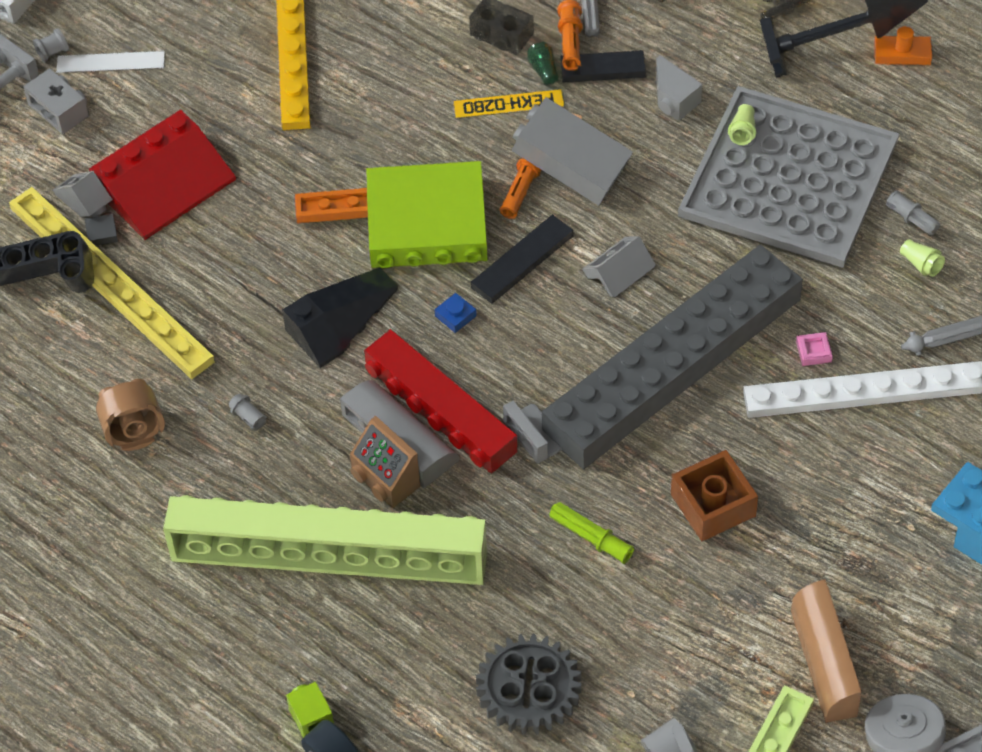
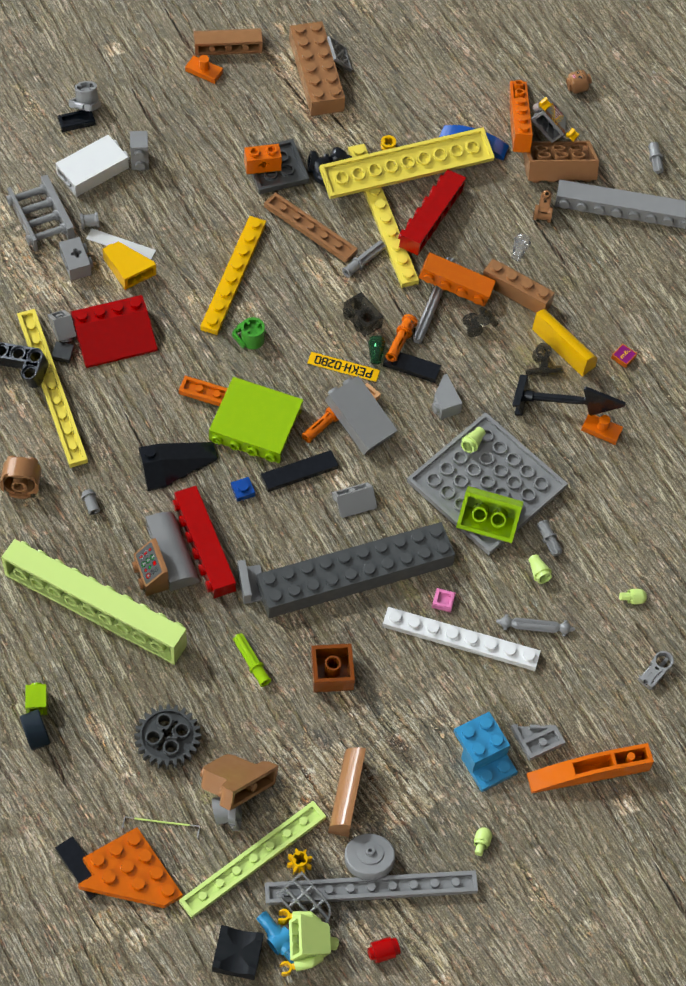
camera: 15 degrees right, 5 degrees up
(136, 81) = (128, 264): none -> yellow slope
(360, 104) = (252, 333): none -> bright green piece
(663, 697) = (237, 779): none -> medium nougat brick
(820, 210) = (489, 514): none -> lime slope

